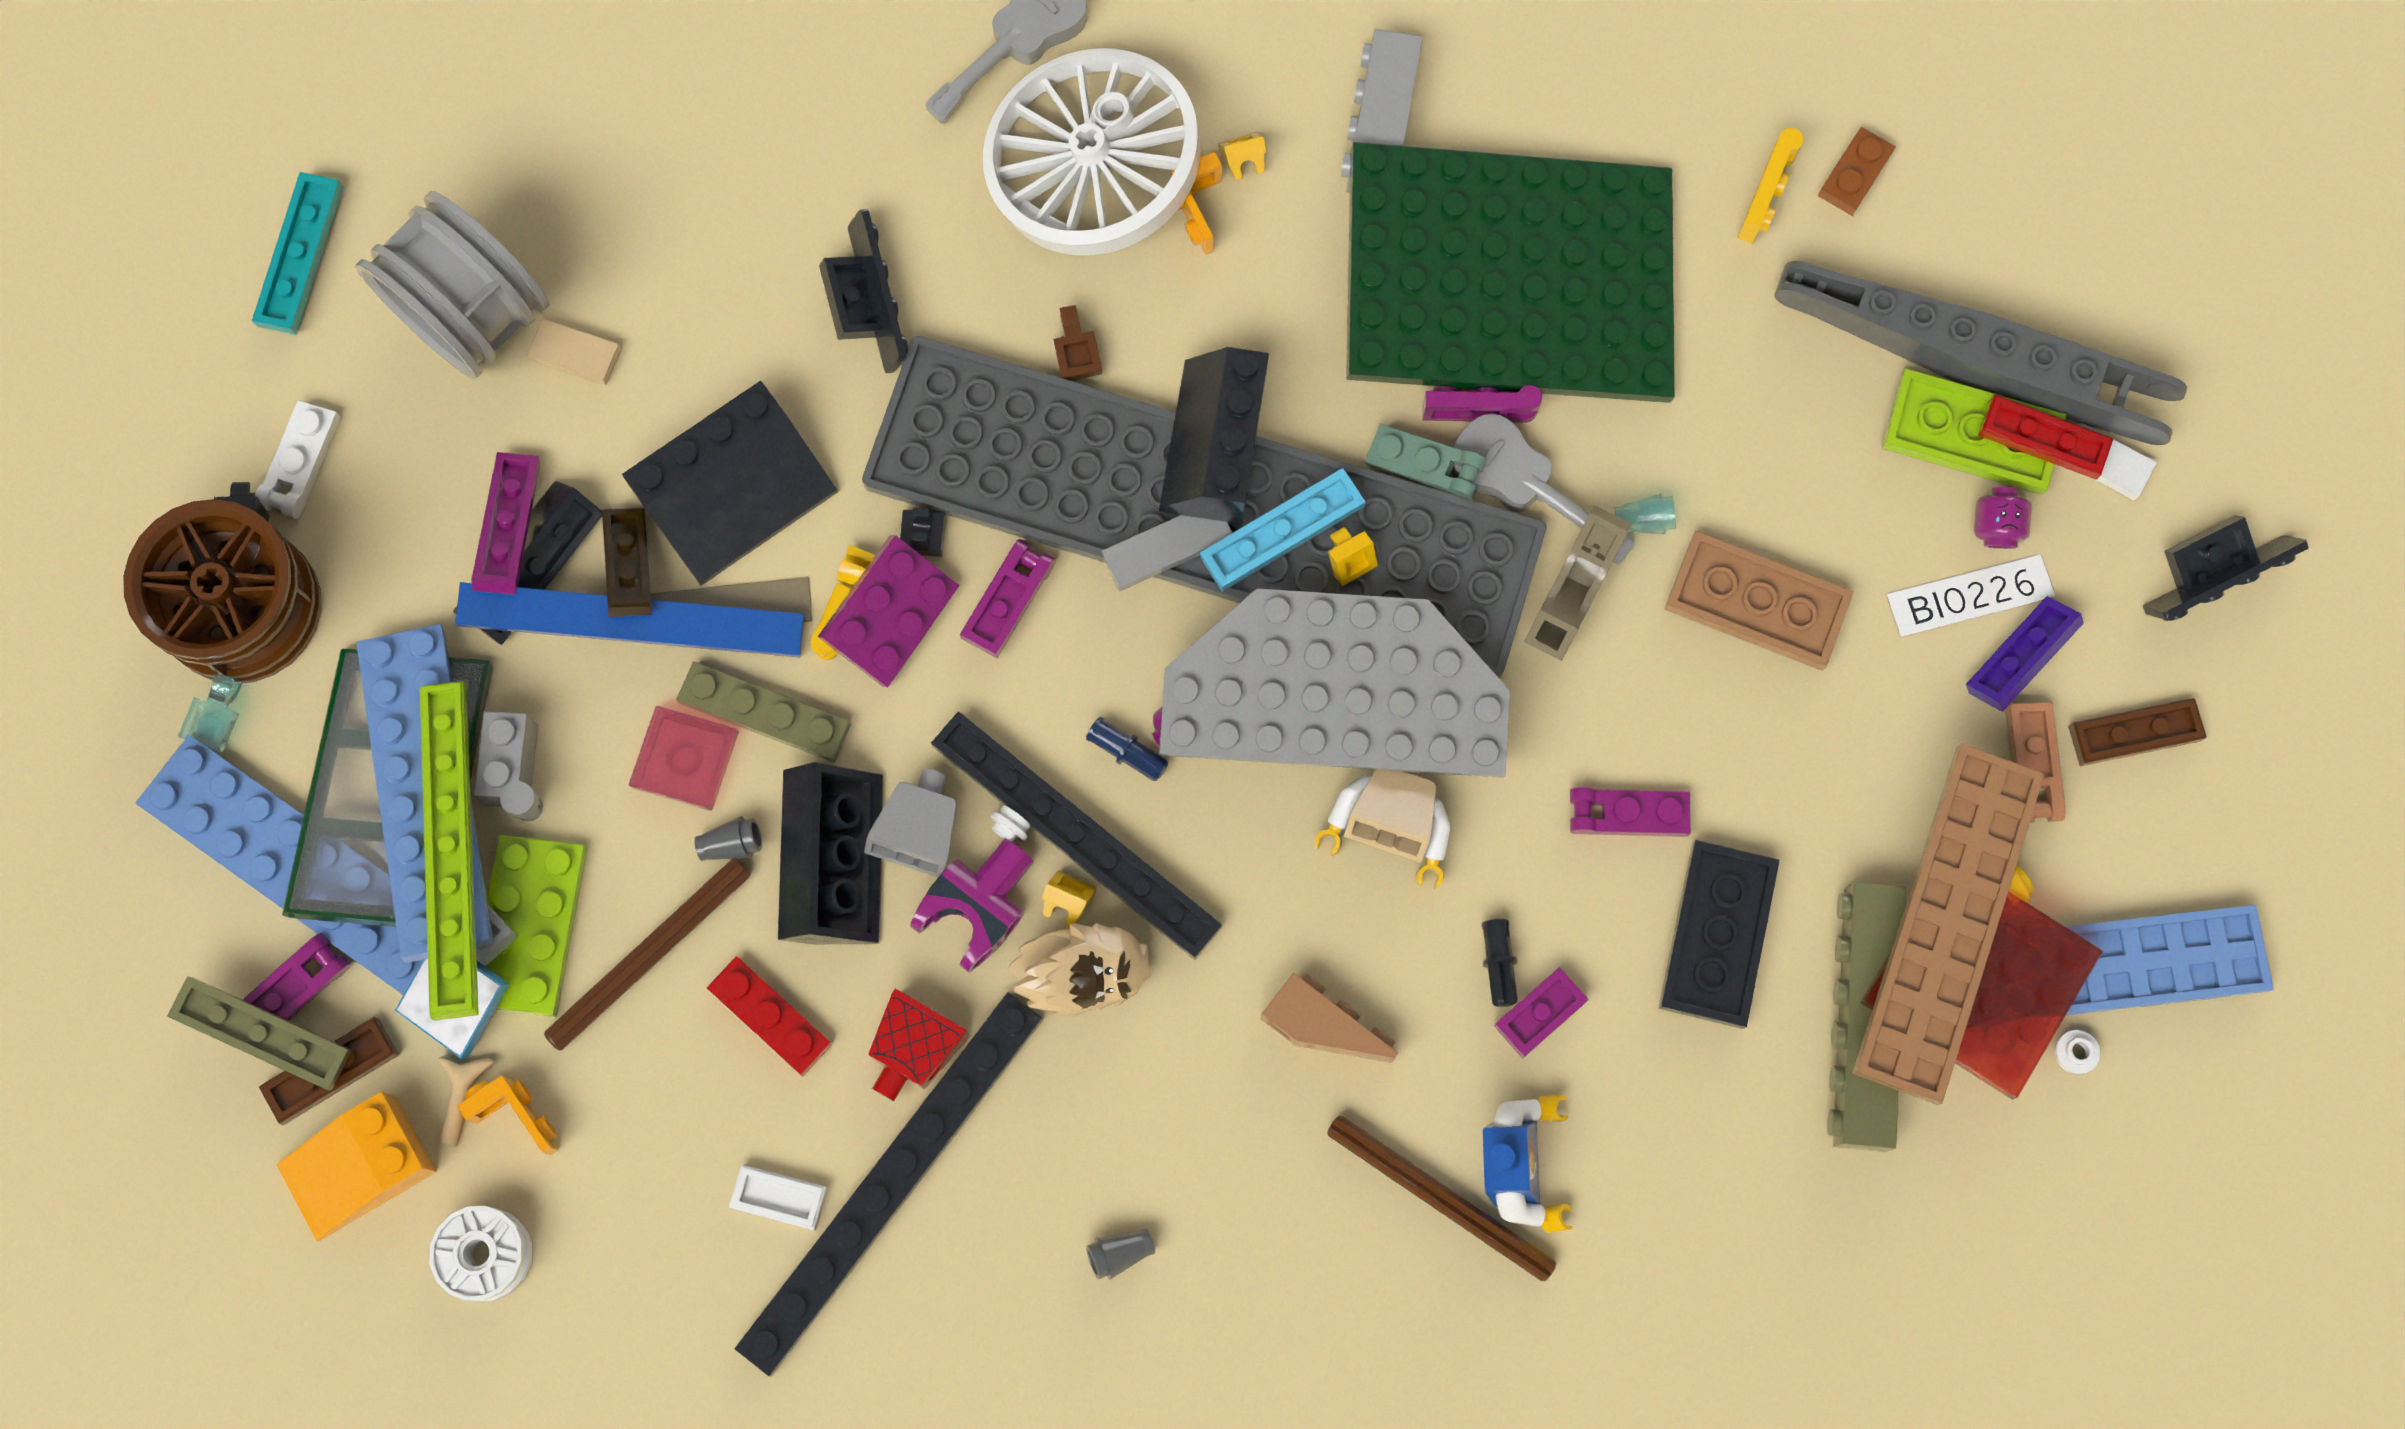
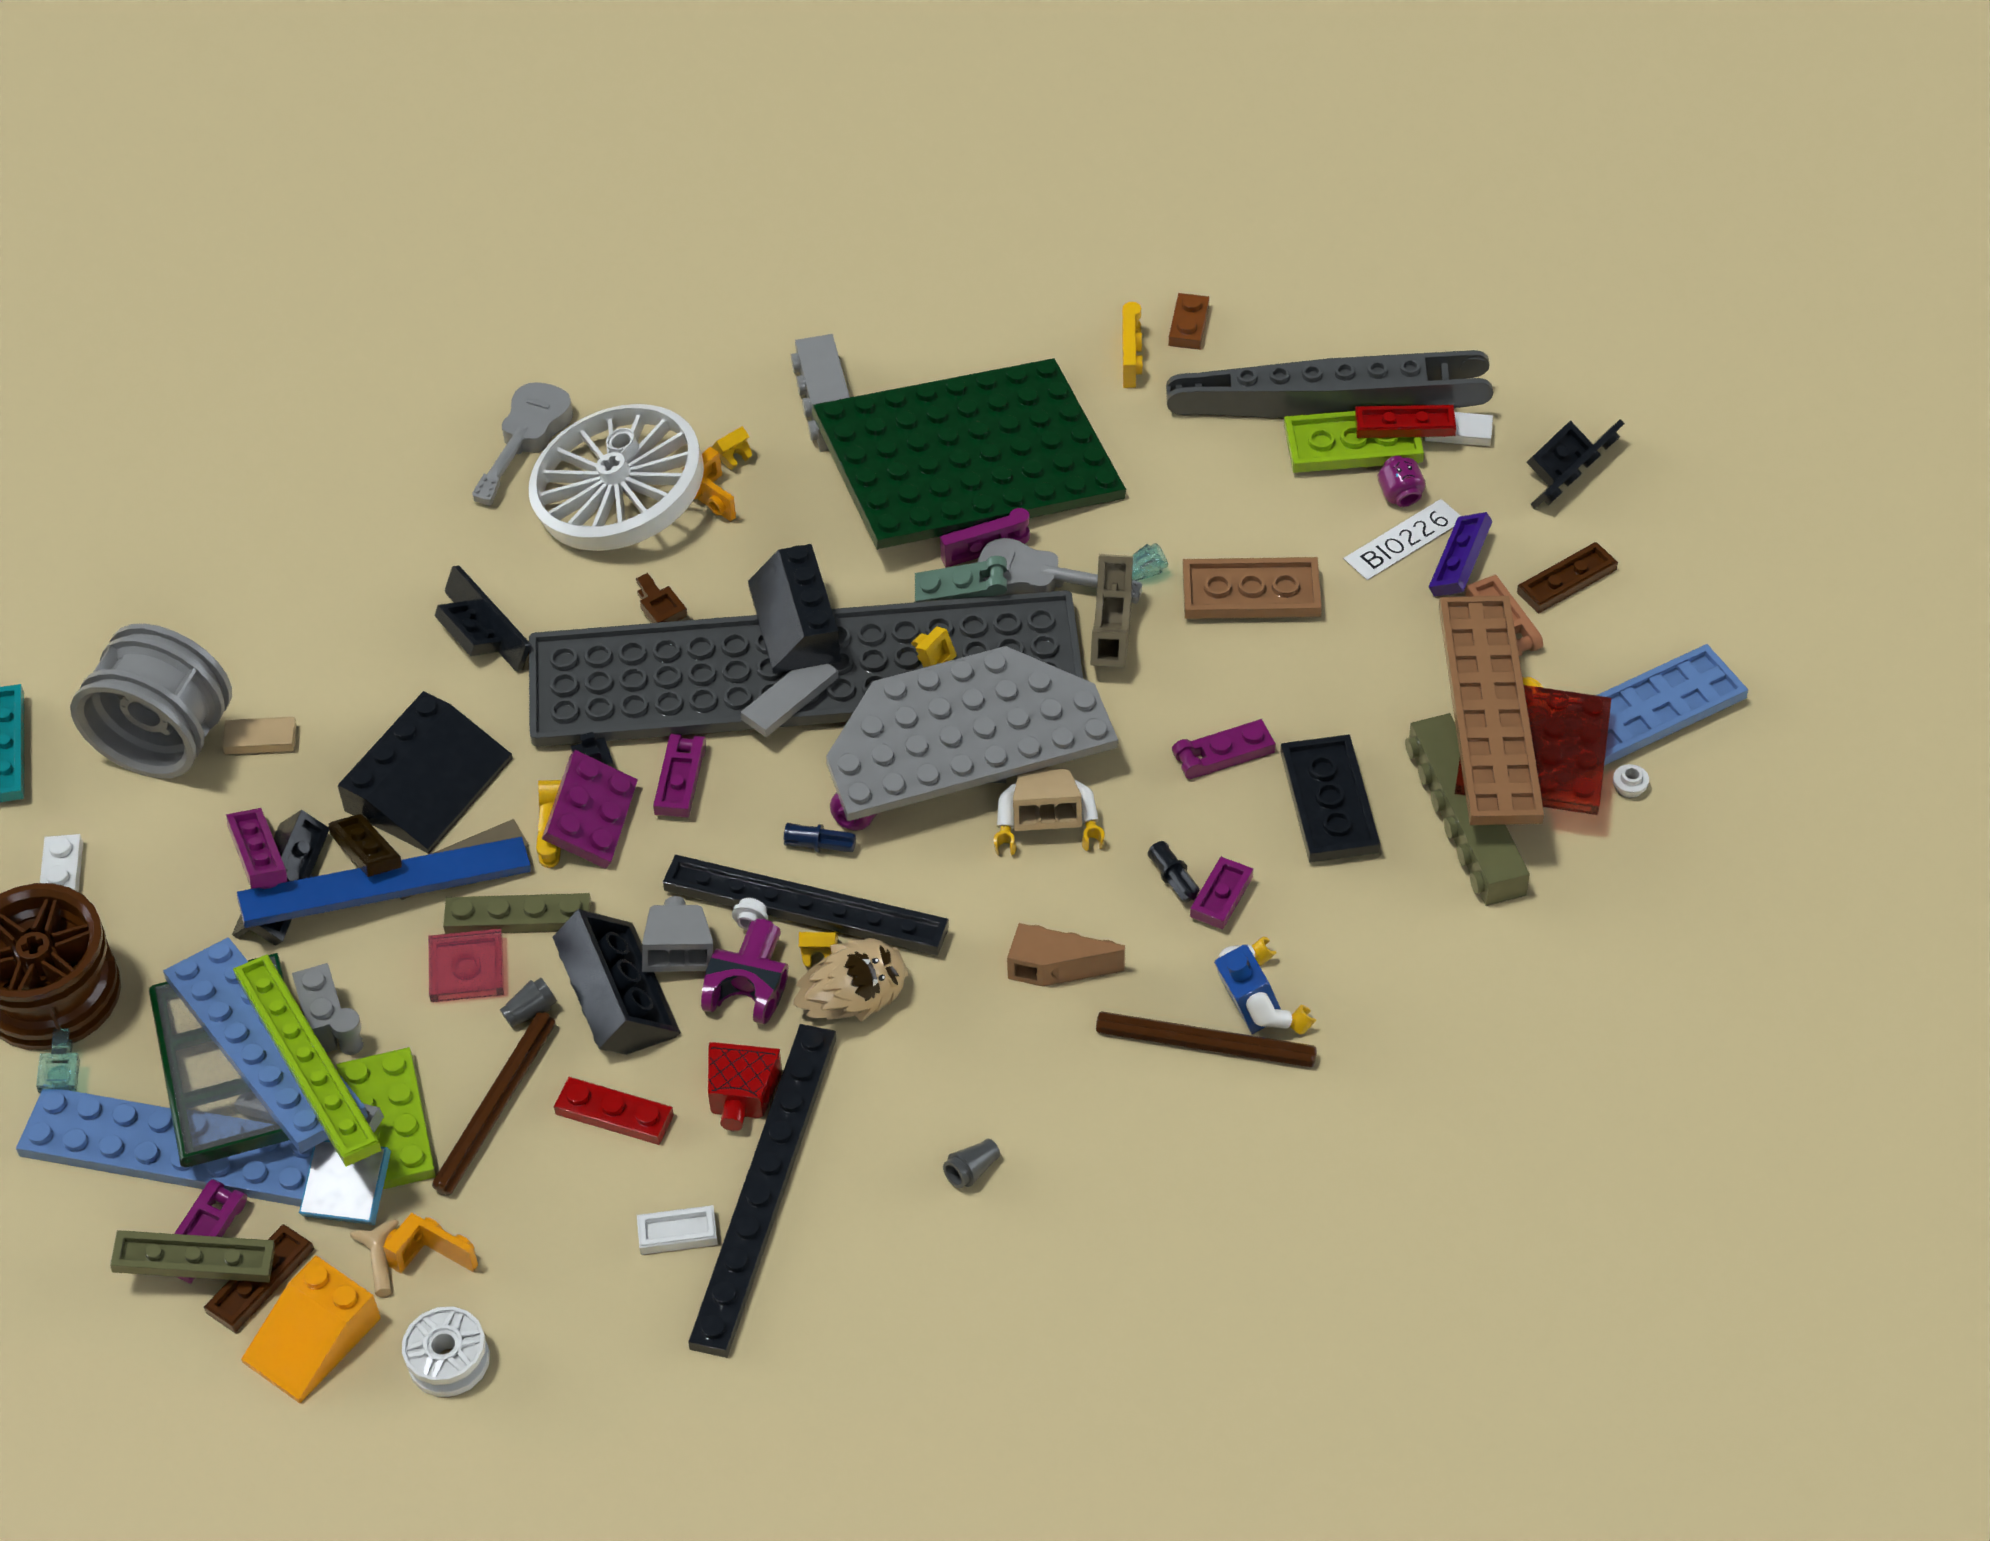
camera: 20 degrees left, 25 degrees down
(1282, 529) = (873, 653): medium azure plate -> none

